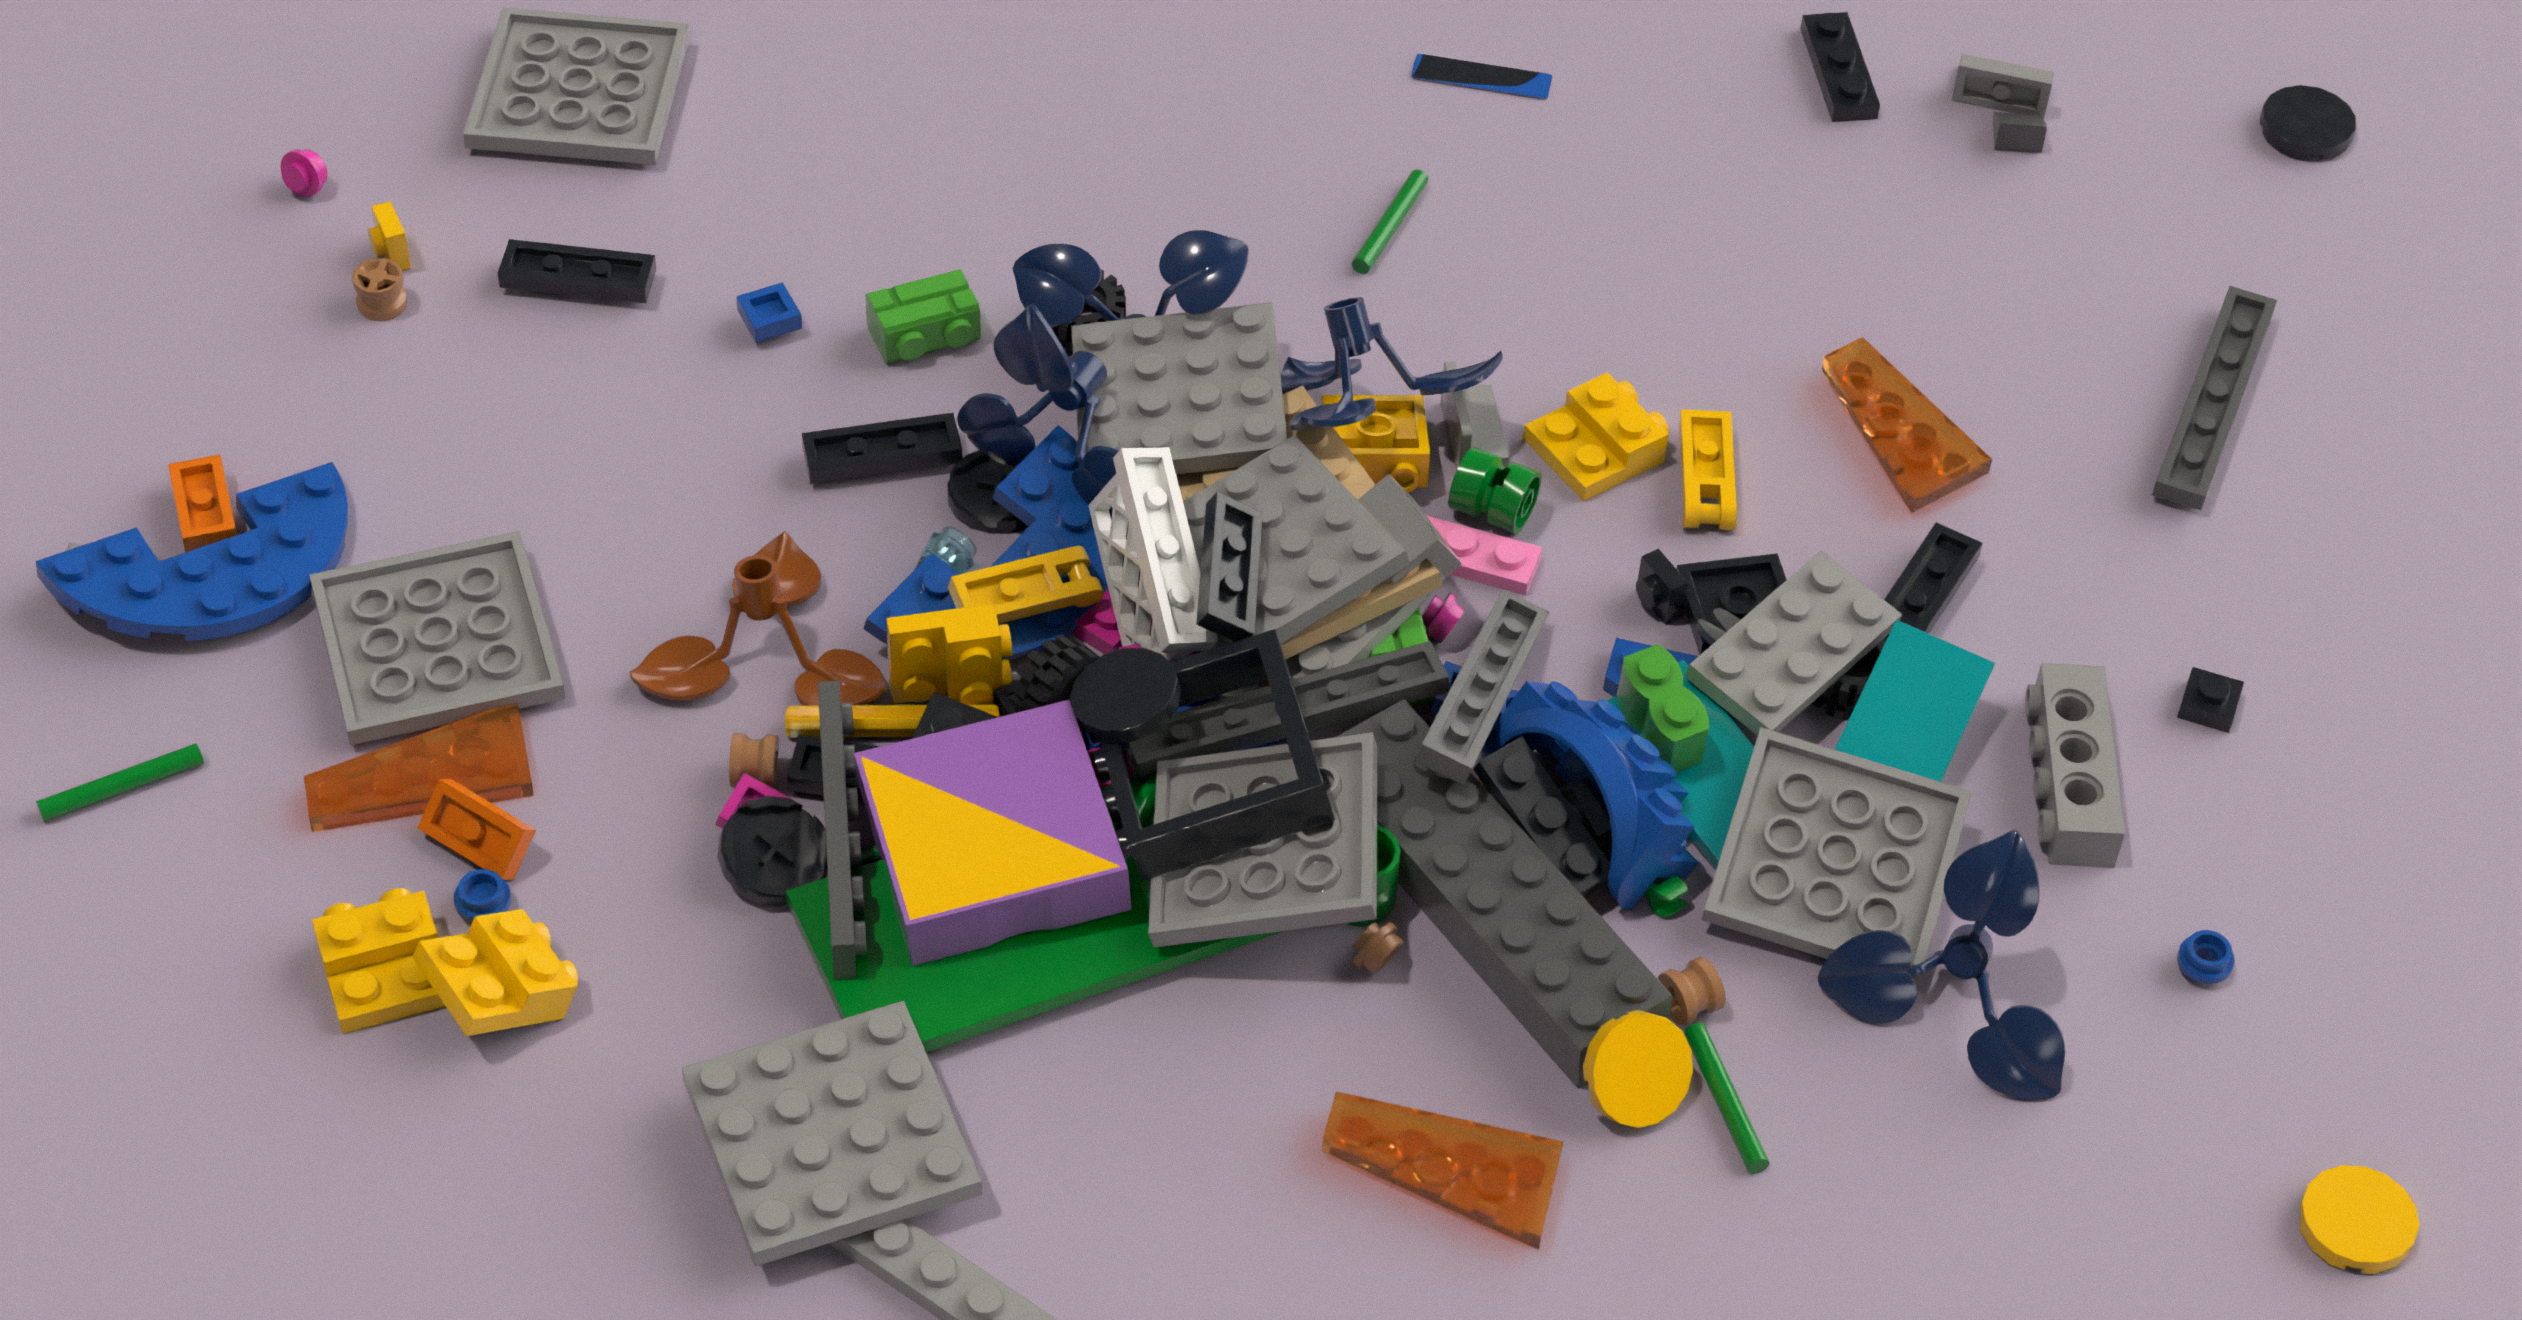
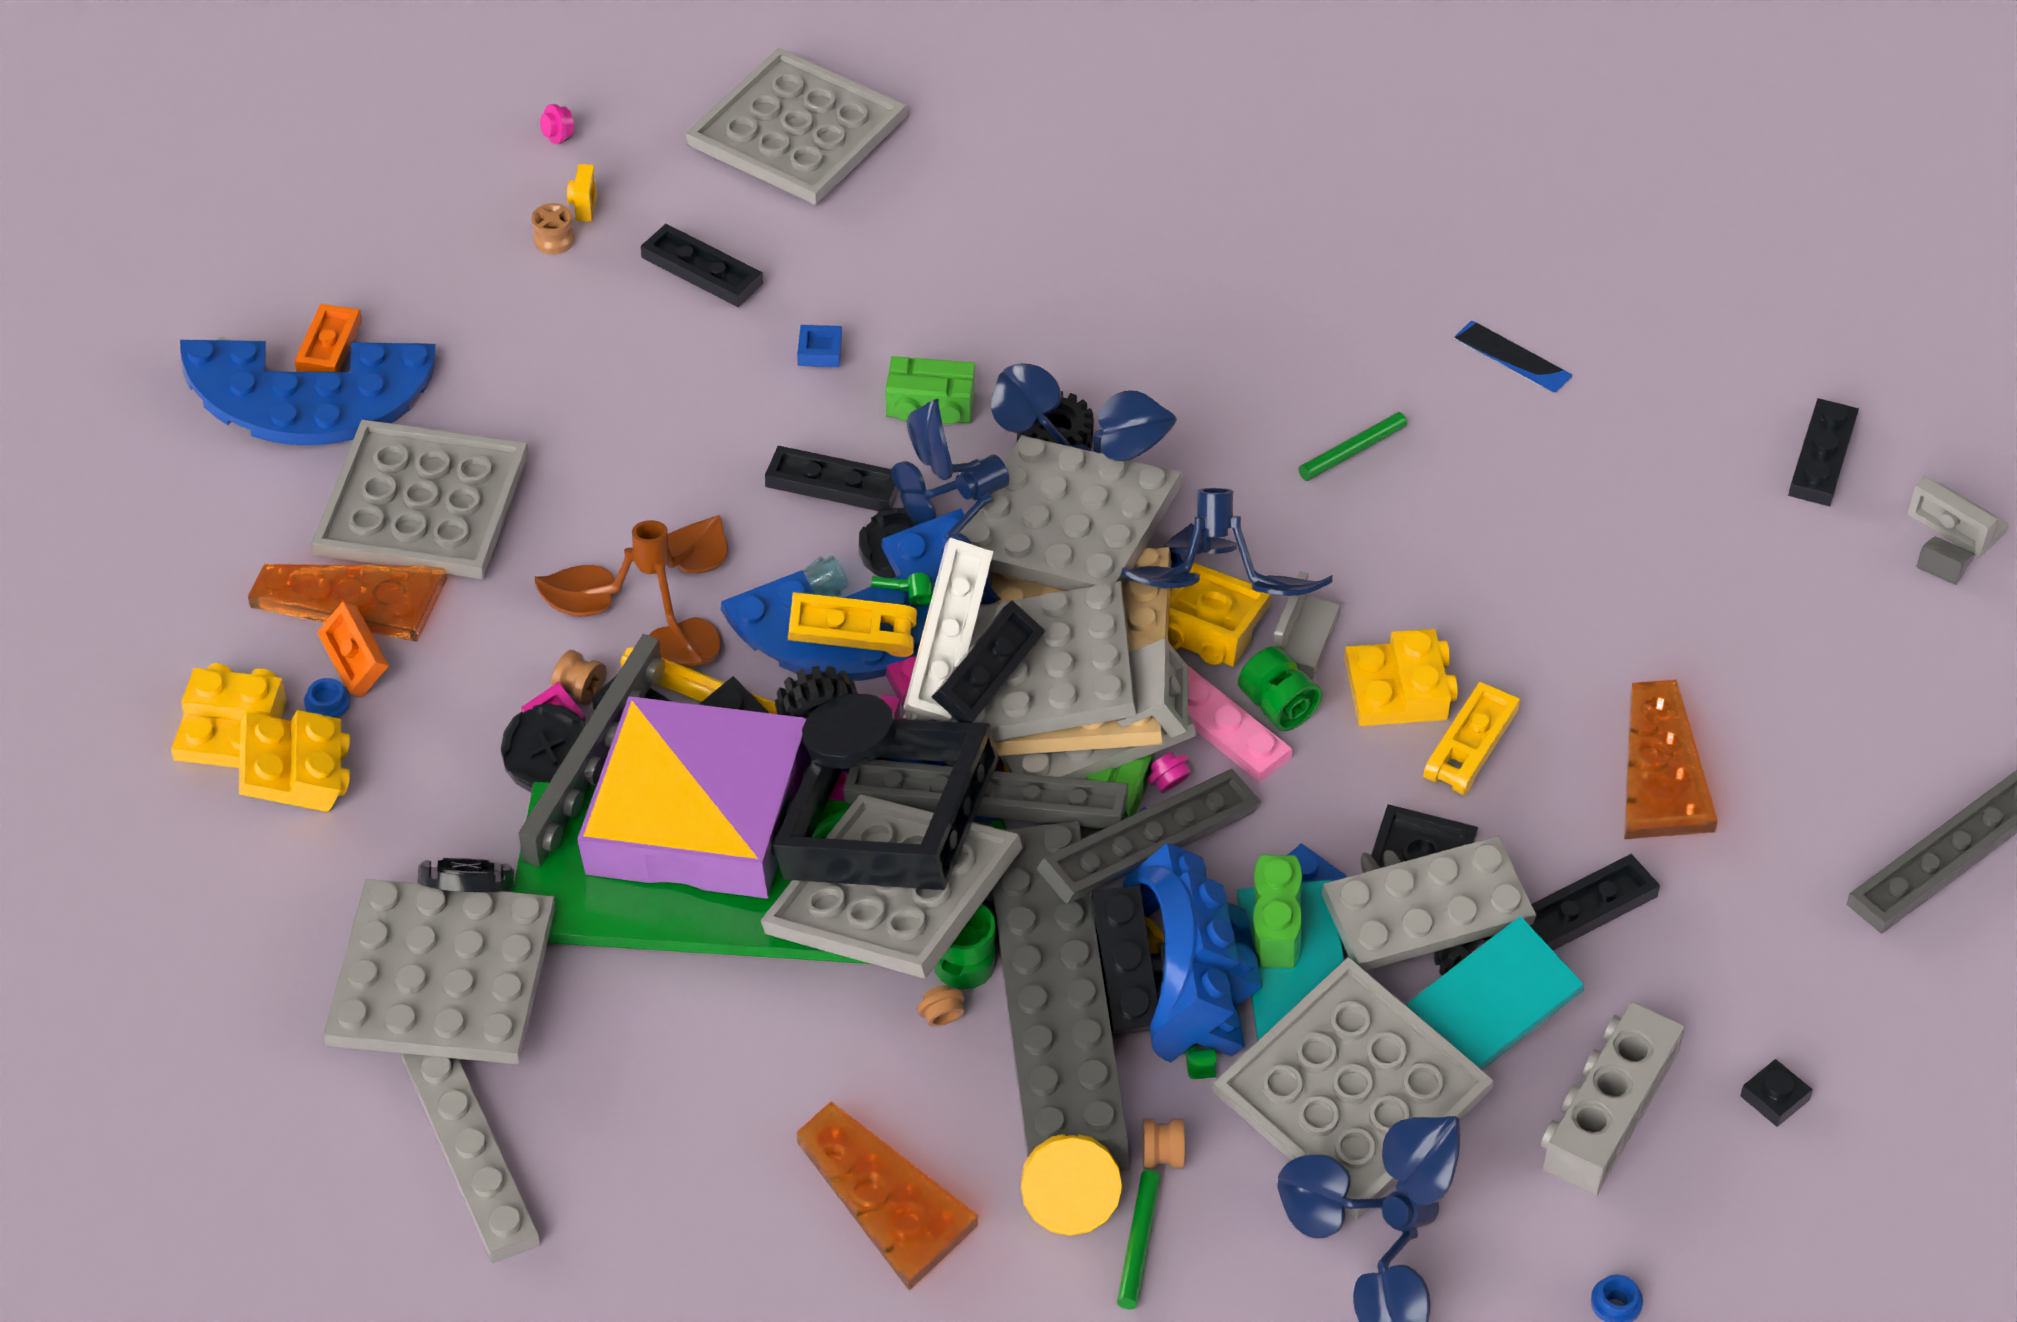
camera: 30 degrees right, 0 degrees up
(119, 782) = (144, 520): green bar -> none
(786, 1019) = (465, 875): none -> black tile
(948, 654) = (758, 649): yellow plate -> none
(1070, 521) = (917, 585): none -> green hand
(1661, 586) = (1363, 816): black plate -> none

